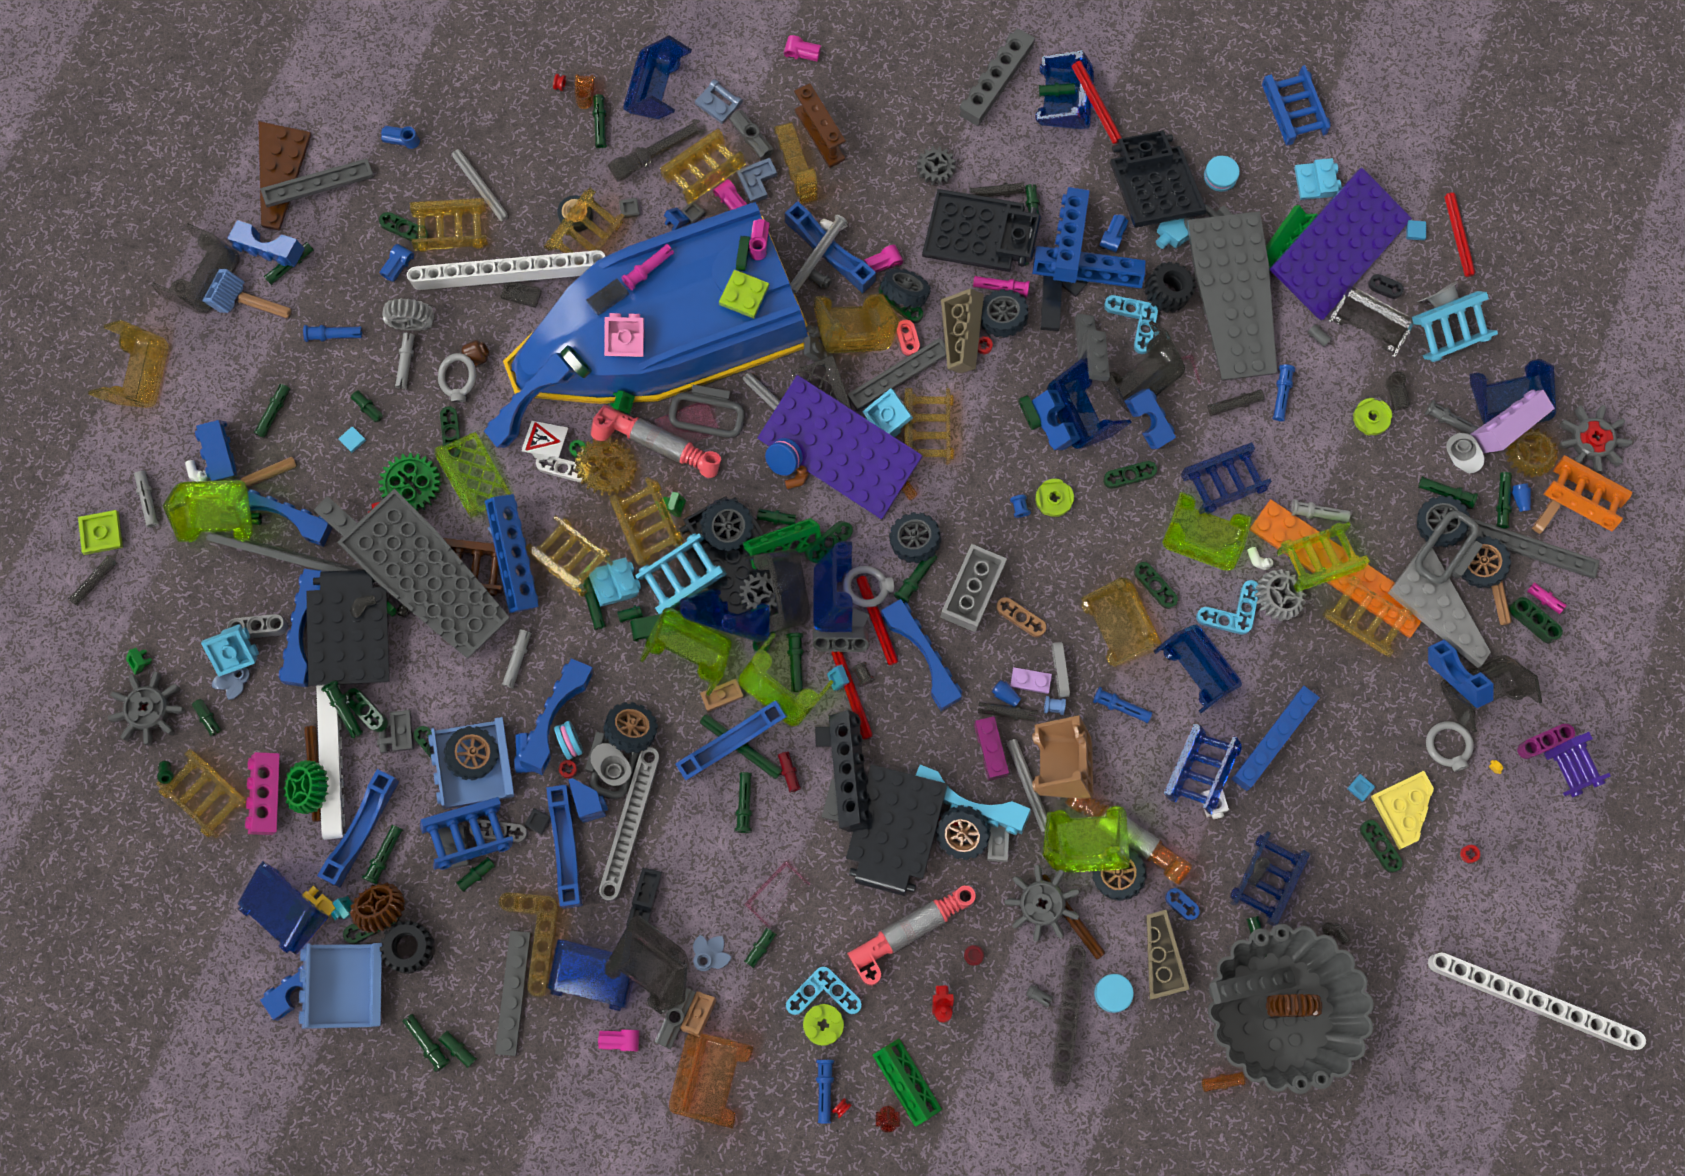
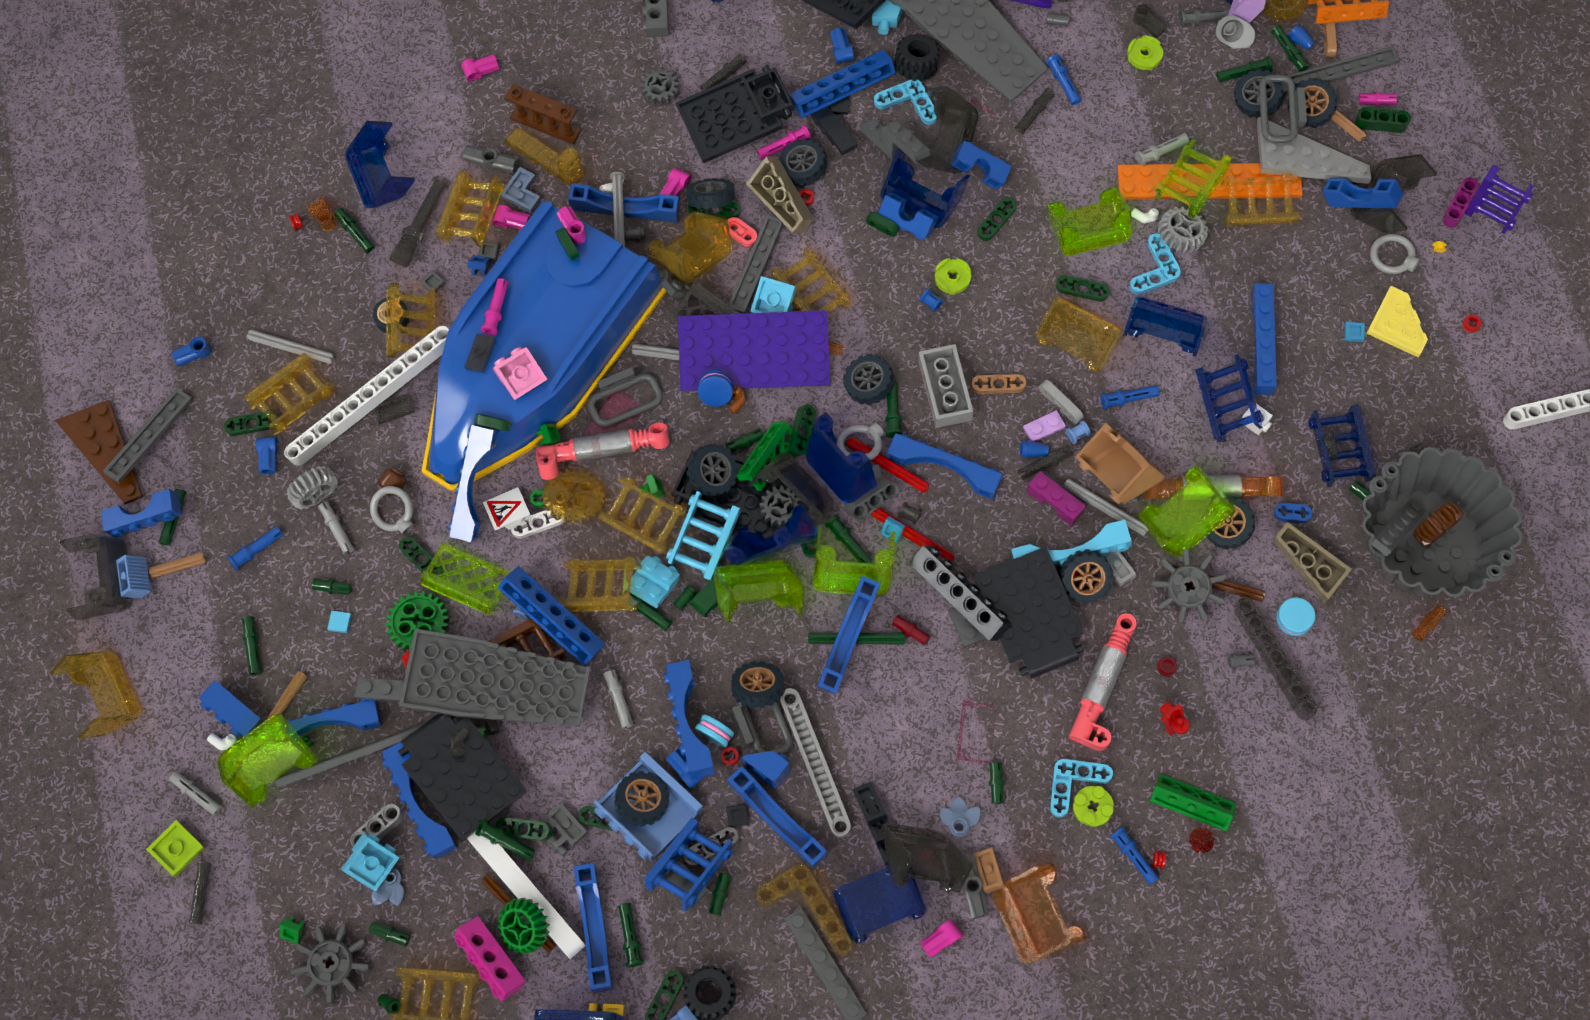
camera: 30 degrees left, 5 degrees down
(343, 908) = (631, 1002): teal tile -> none
(377, 907) = (656, 990): reddish brown gear -> none
(610, 764) = (764, 725): light grey piece -> none
(714, 105) = (441, 157): sand blue plate -> none
(722, 695) = (812, 607): medium nougat plate -> none
(743, 812) = (900, 687): dark green pin -> none
(744, 294) = (592, 275): lime plate -> none
(822, 737) = (917, 583): black tile -> none
(1032, 198) = (755, 61): dark green pin -> none
(1071, 235) = (811, 67): blue brick -> none
(1227, 460) = (1063, 157): clear blue fence -> none
(1377, 830) = (1401, 357): dark green beam -> none

